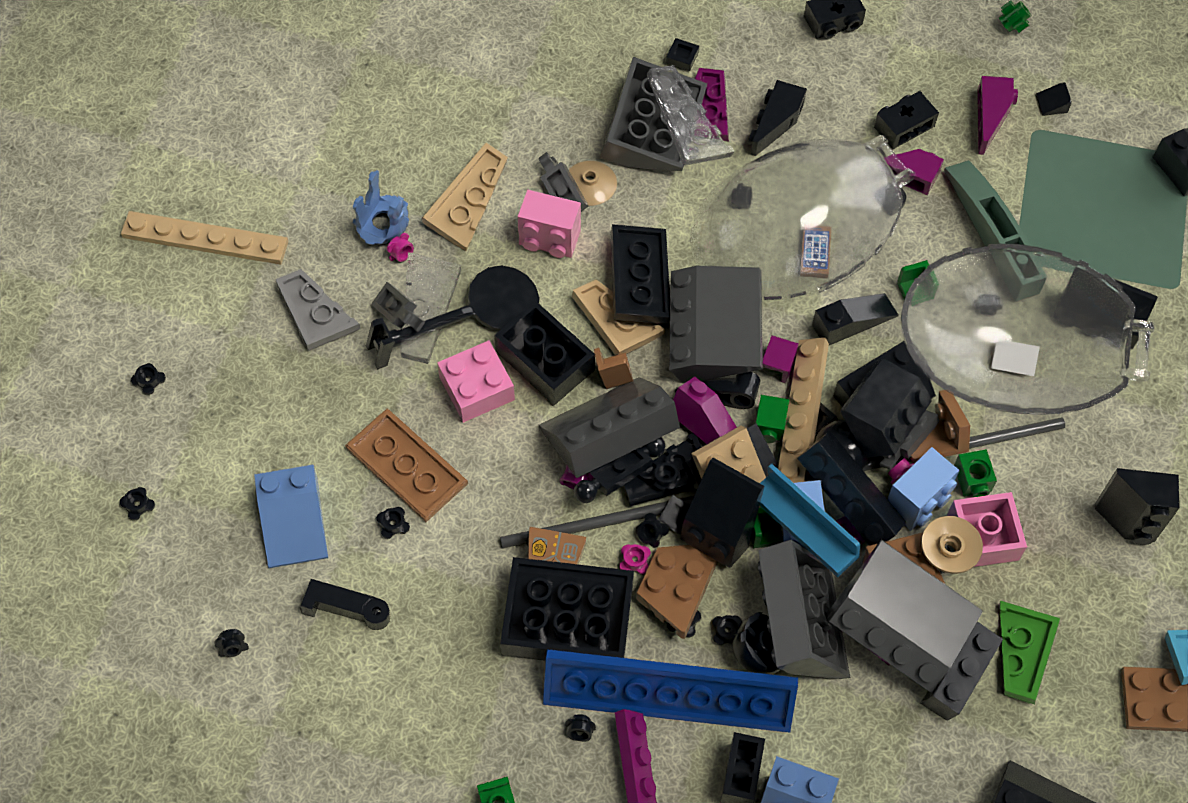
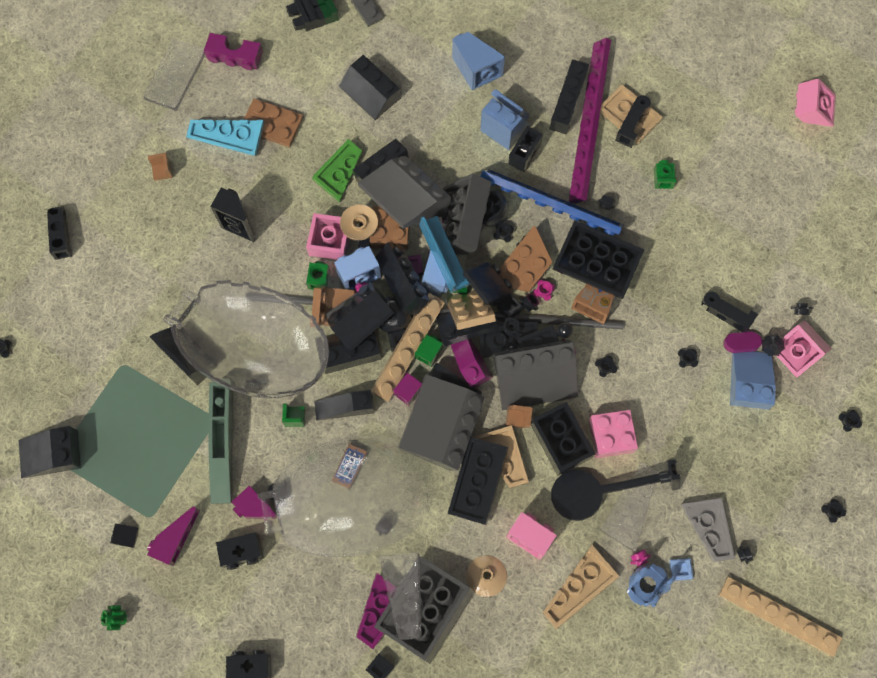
camera: 160 degrees left, 10 degrees up
(222, 582) = (802, 348): none -> bright pink slope
(261, 291) = (745, 554): none -> black plate
(268, 569) = (773, 345): none -> black piece
(316, 565) = (742, 342): none -> magenta tile
(343, 254) = (681, 569): none -> light blue tile
(397, 307) = (655, 502): dark grey plate -> none
(406, 465) = (670, 395): medium nougat tile -> none
(510, 467) = (608, 360): none -> black plate
(560, 181) = (510, 574): dark grey plate -> none
(780, 114) = (323, 589): black slope -> none
(1015, 357) = (255, 343): white sticker -> none

